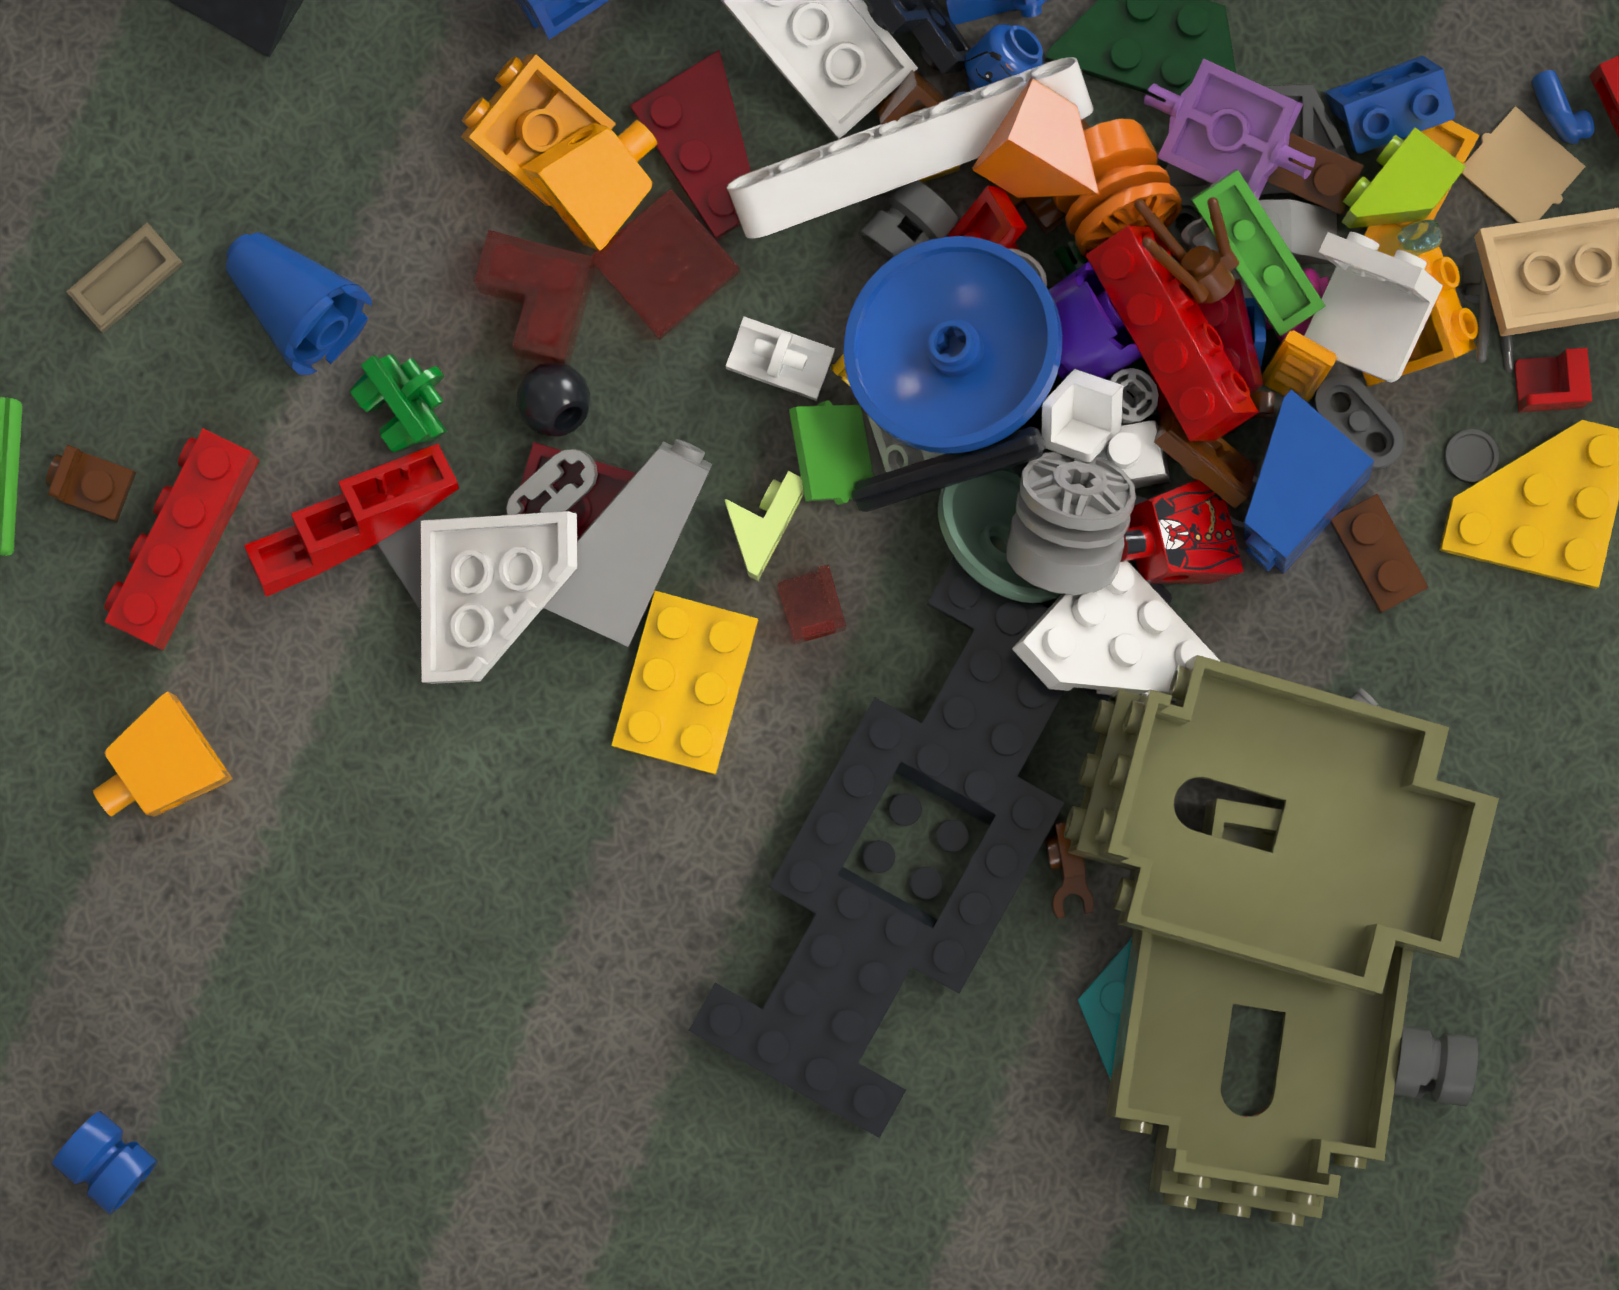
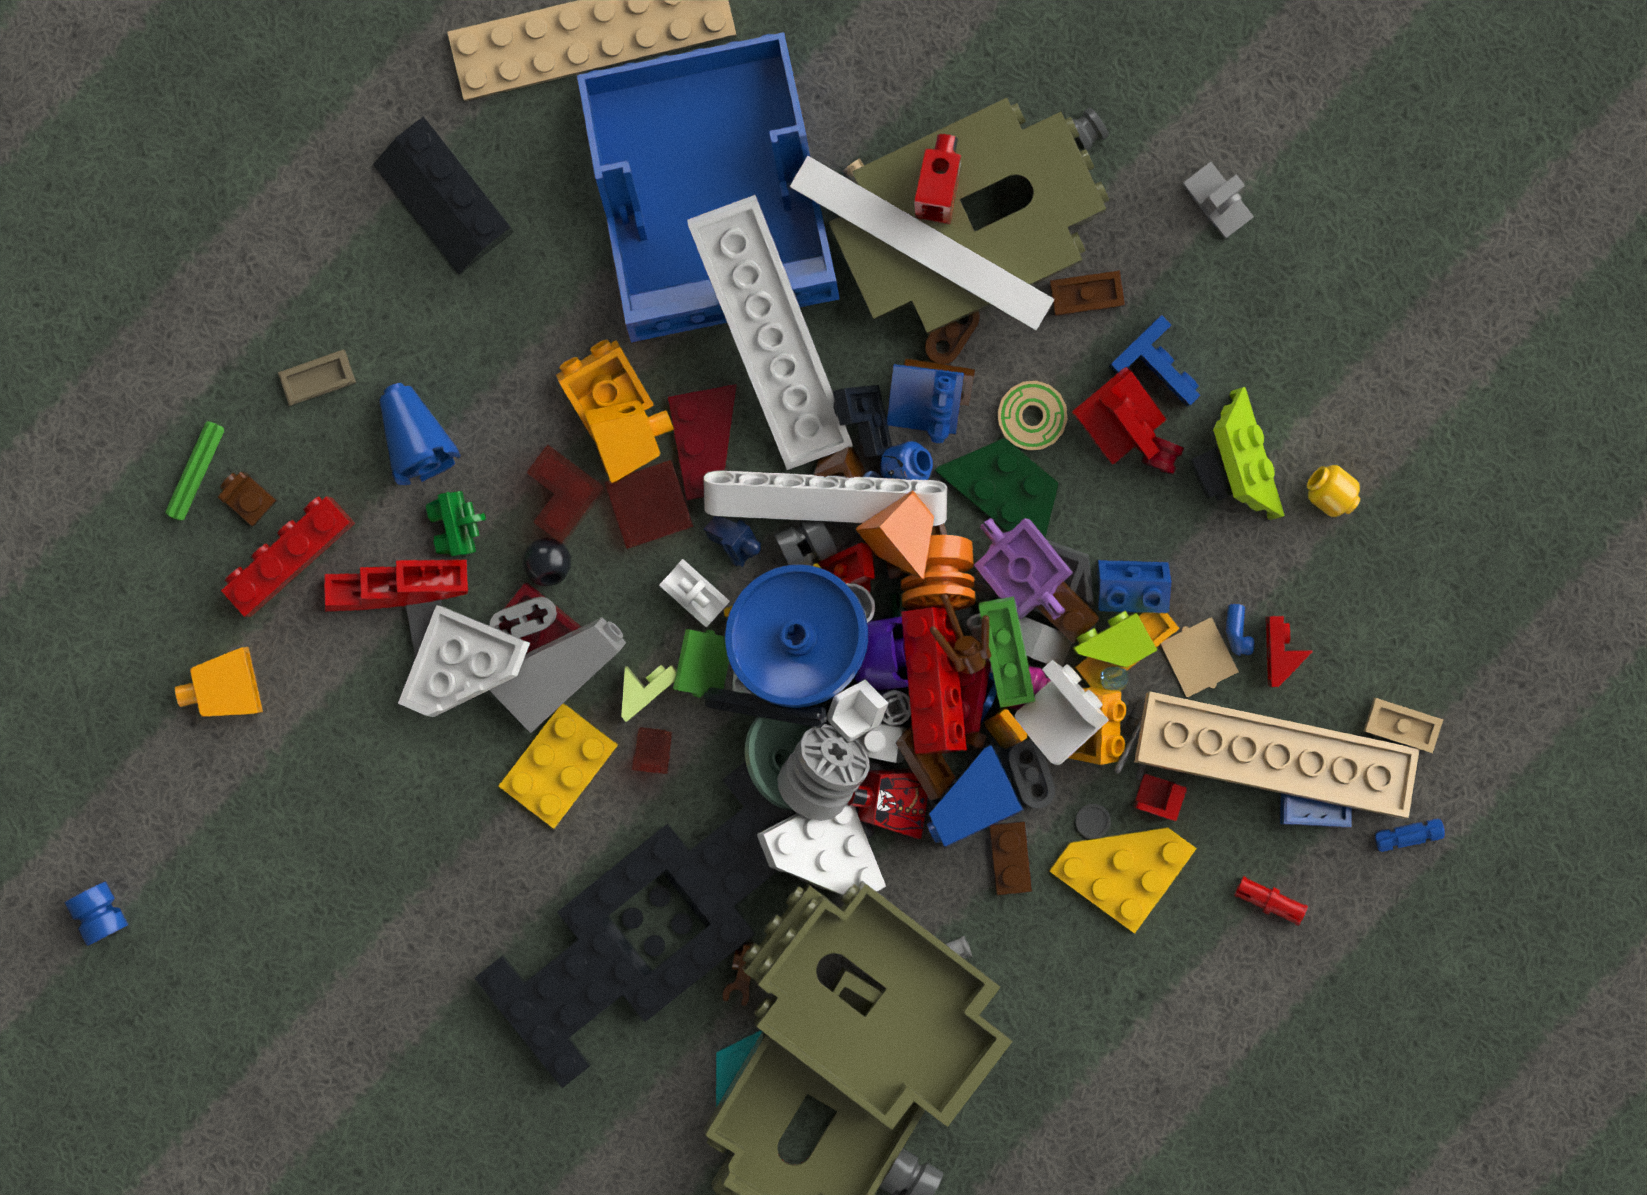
camera: 25 degrees right, 5 degrees up
(804, 258) = (735, 538): none -> dark blue piece

